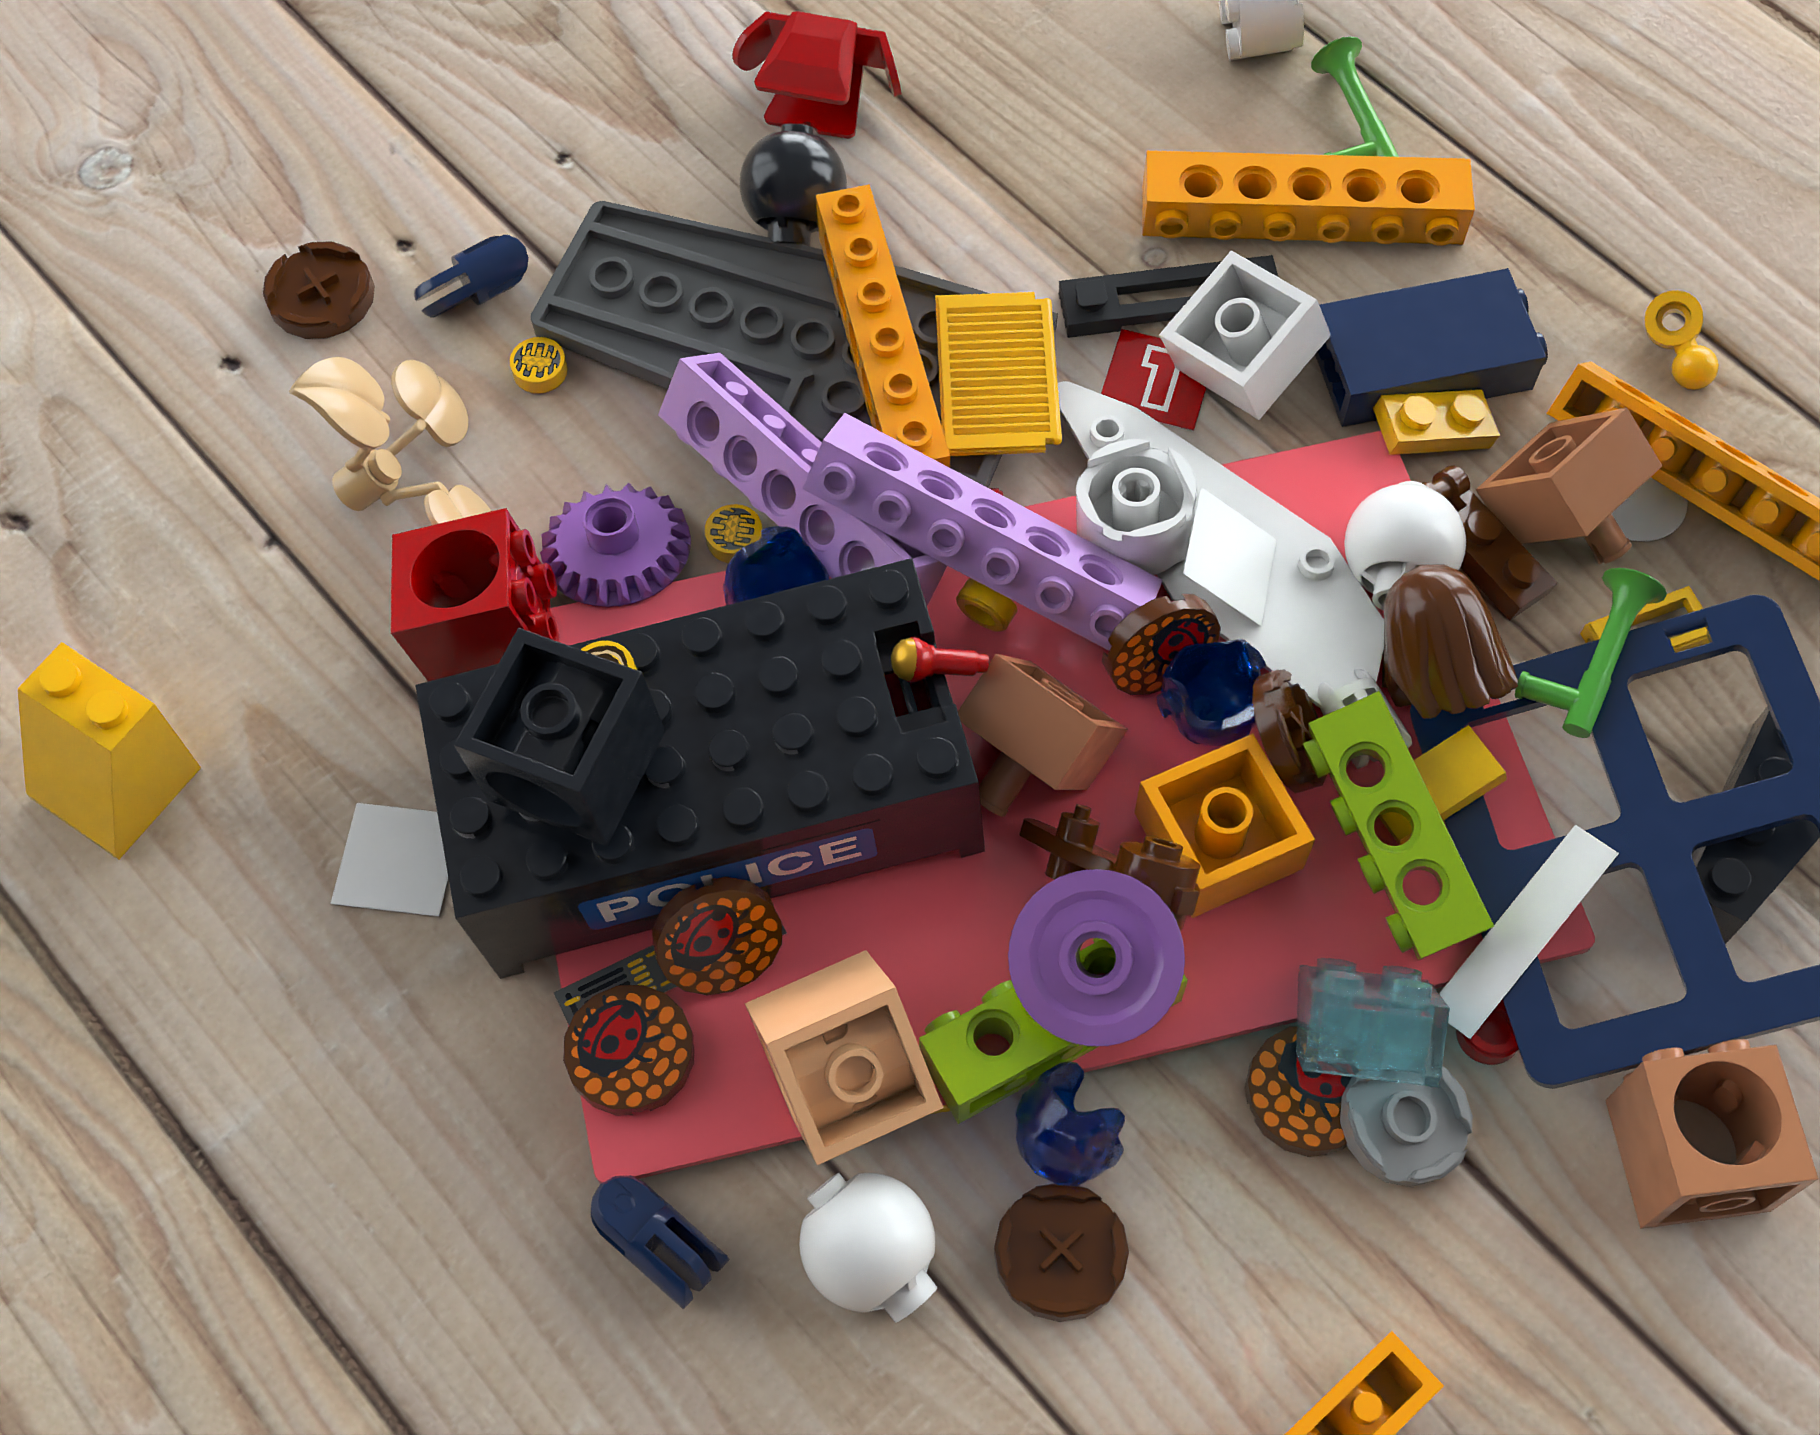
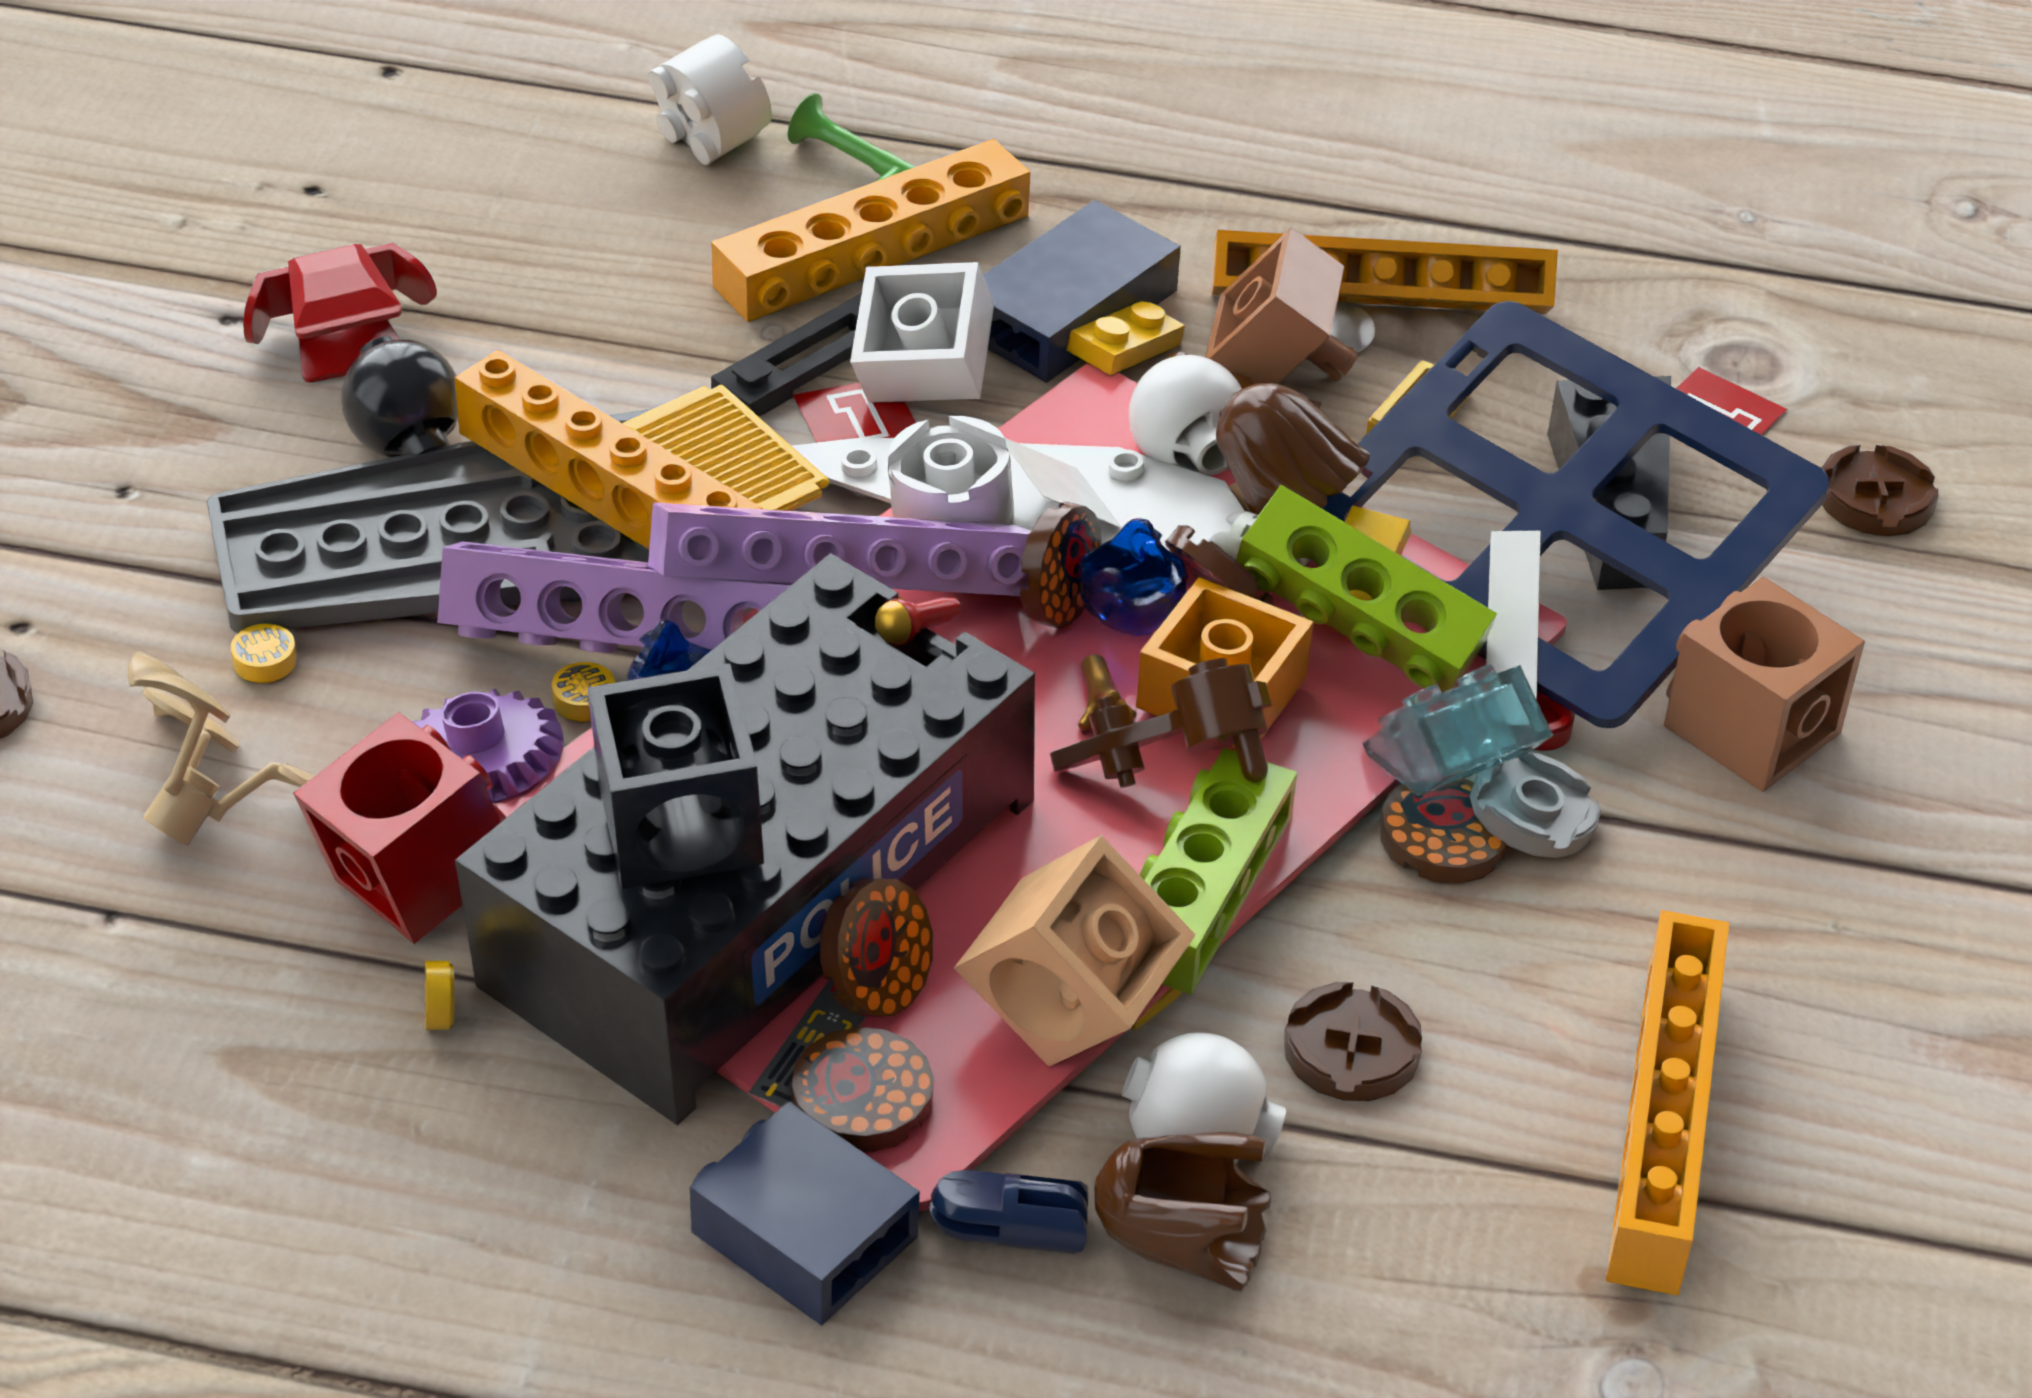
camera: 40 degrees left, 20 degrees down
(98, 751) = (122, 1124): yellow slope -> none
(393, 861) = (488, 1090): white sticker -> none
(407, 760) = (438, 995): none -> yellow tile
(483, 270) = (139, 601): dark blue arm -> none
(503, 1131) = (804, 1212): none -> brick
(775, 1339) = (1187, 1203): none -> reddish brown hair
(1038, 729) = (1039, 637): nougat brick -> none
(1060, 1140) = (1291, 939): clear blue cap -> none
(1067, 996) = (1250, 739): medium lavender gear -> none
(1117, 781) = (1099, 686): none -> pearl gold bar
(1630, 594) = (1399, 349): bright green piece -> none
(1693, 364) = (1283, 212): yellow plate -> none

